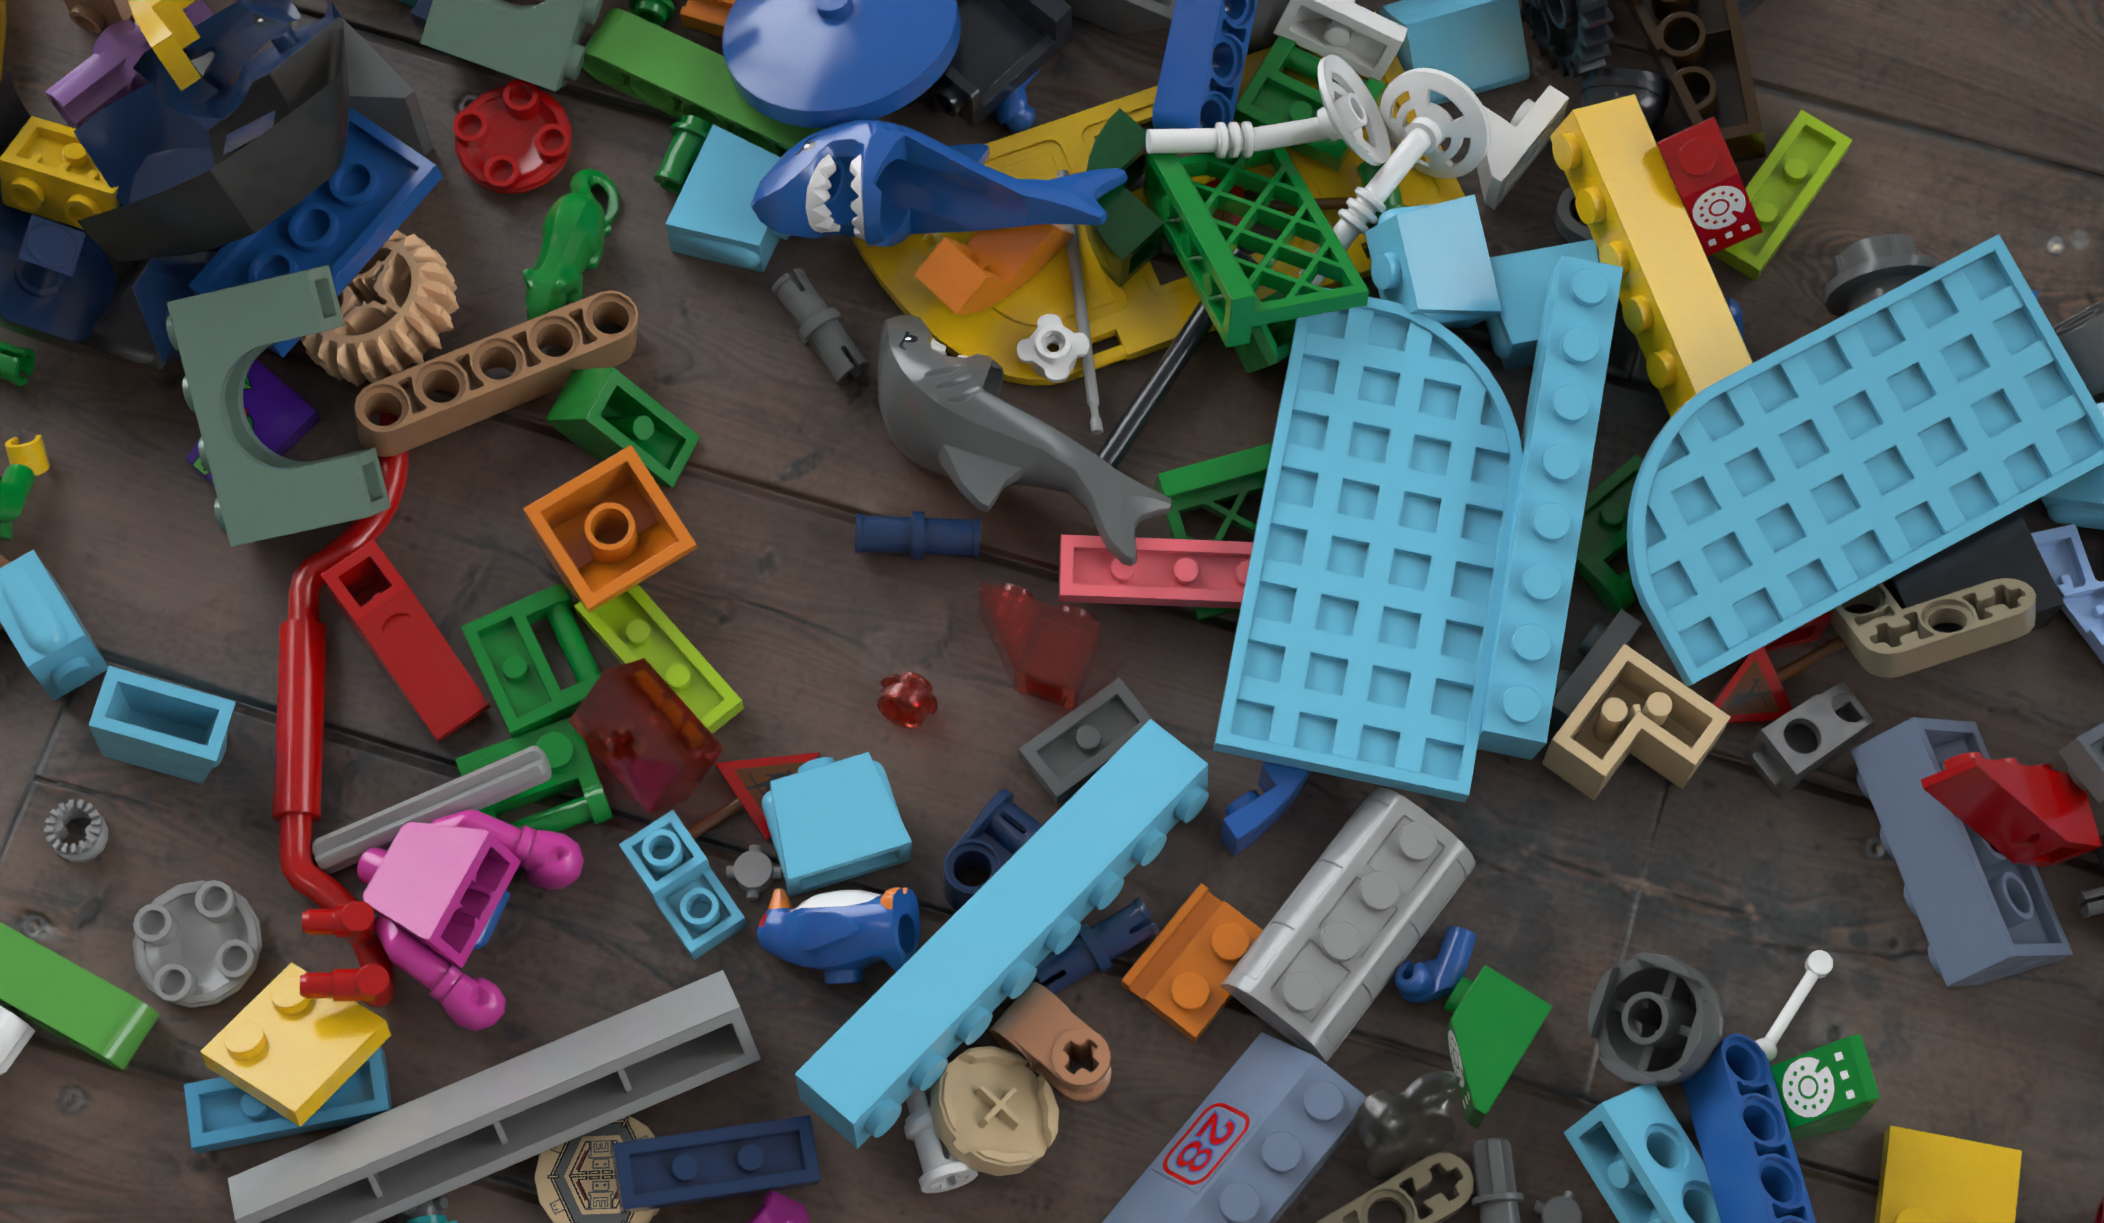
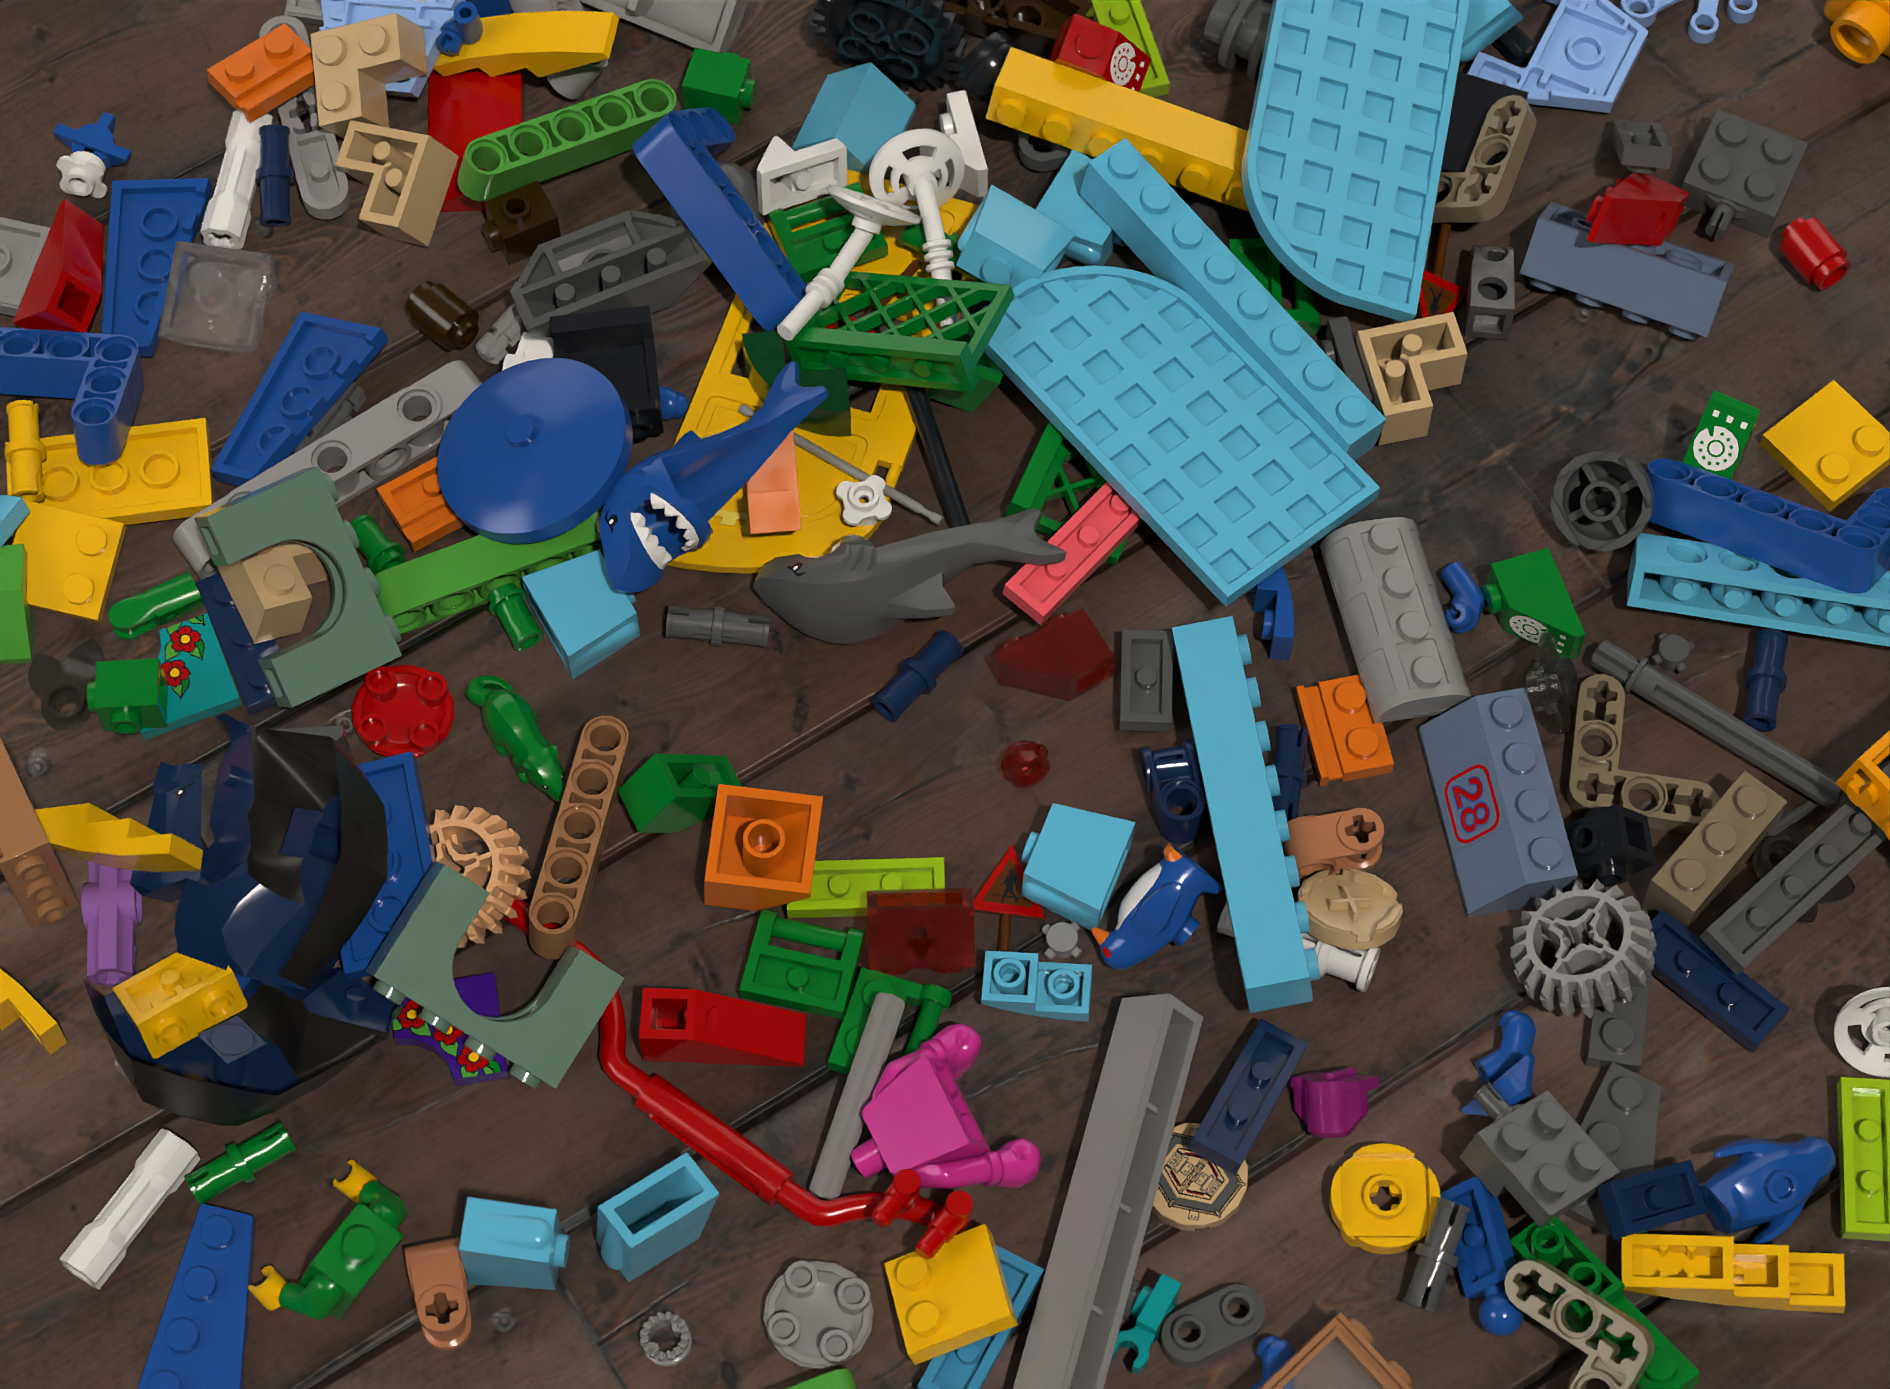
camera: 50 degrees left, 5 degrees down
(1817, 966) = (1630, 399): white hinge -> none

